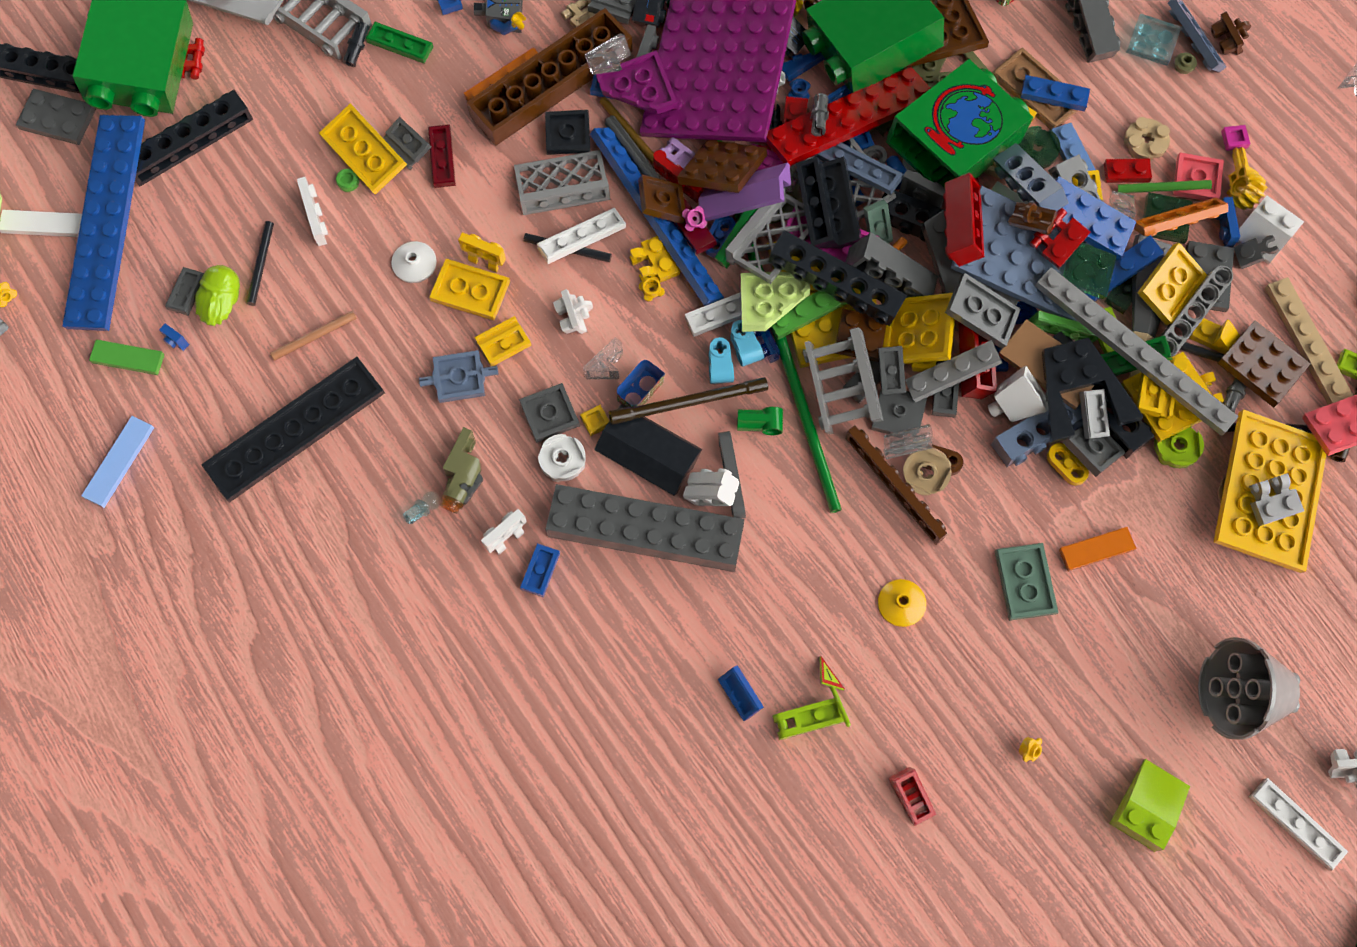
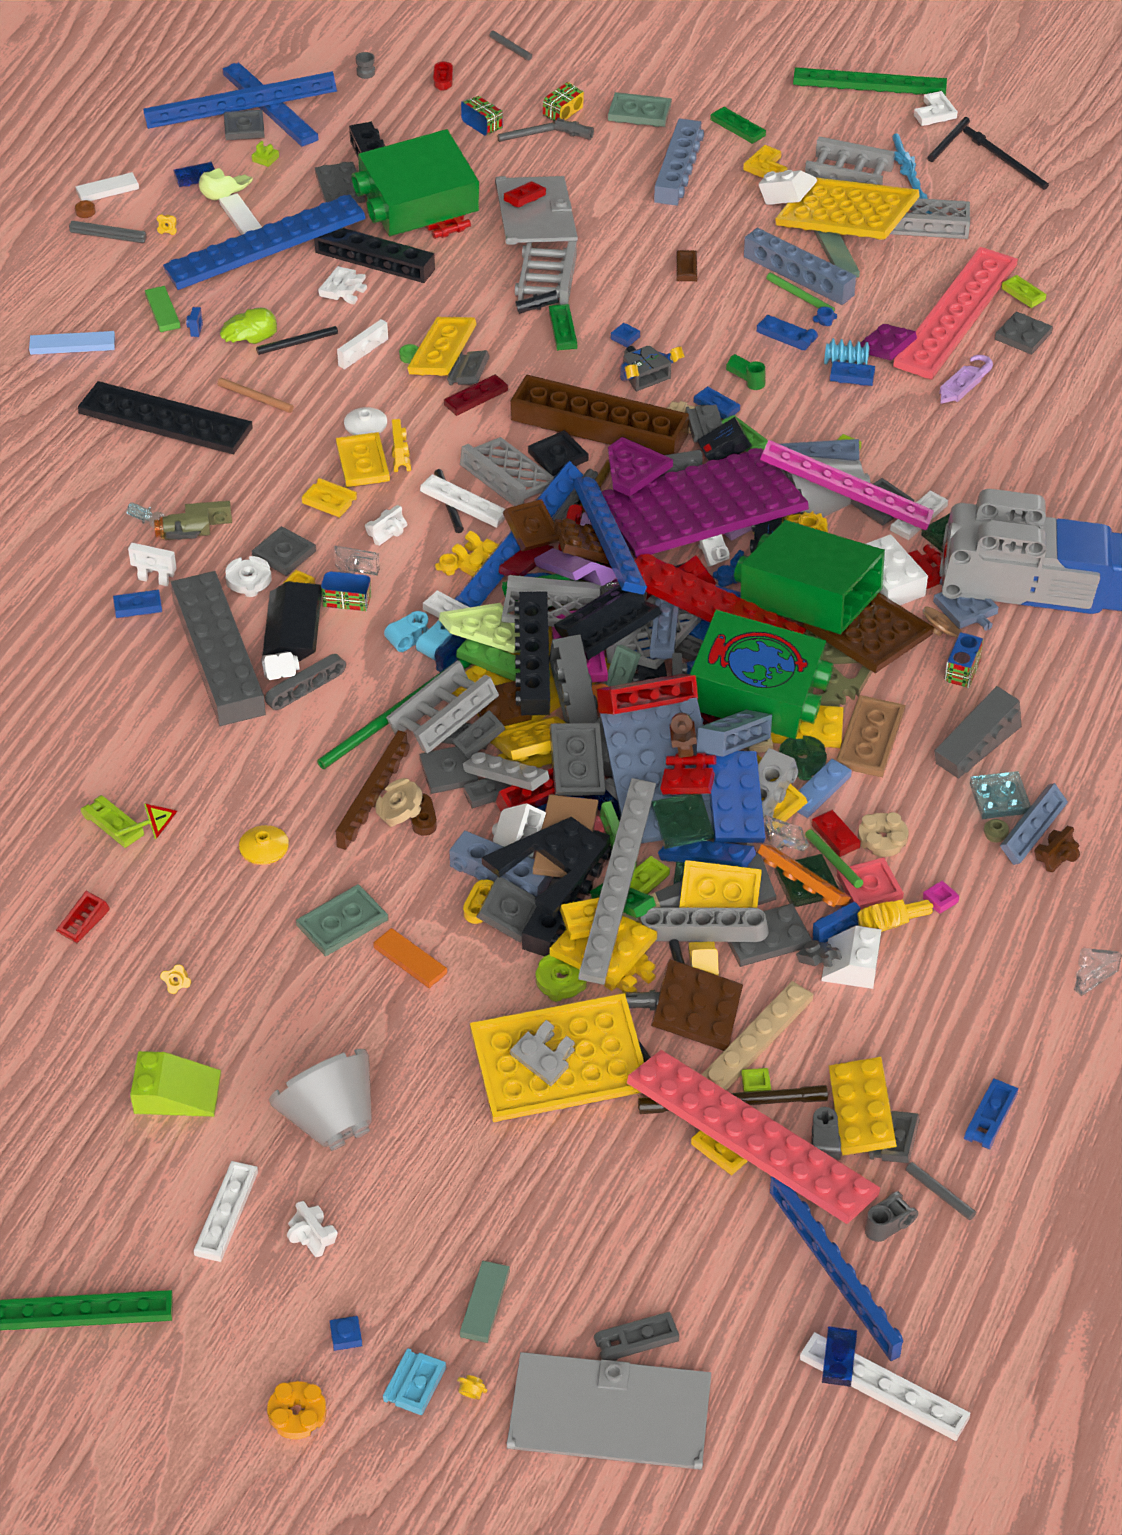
camera: 60 degrees right, 25 degrees down
(184, 292) = (229, 310): dark grey plate -> none
(207, 191) = (339, 284): none -> white plate
(458, 376) = (277, 486): sand blue plate -> none
(608, 55) = (642, 432): clear slope -> none
(629, 413) = (355, 624): dark brown piece -> none
(700, 218) = (522, 550): dark pink plate -> none
(732, 146) = (609, 535): none -> blue plate
(740, 693) = (106, 767): blue plate -> none
(767, 421) = (372, 681): green piece -> none
(819, 114) = (695, 571): dark grey pin -> none
(908, 441) = (417, 774): clear plate -> none
(1055, 93) = (871, 743): blue plate -> none
(1094, 414) = (535, 883): light grey plate -> none

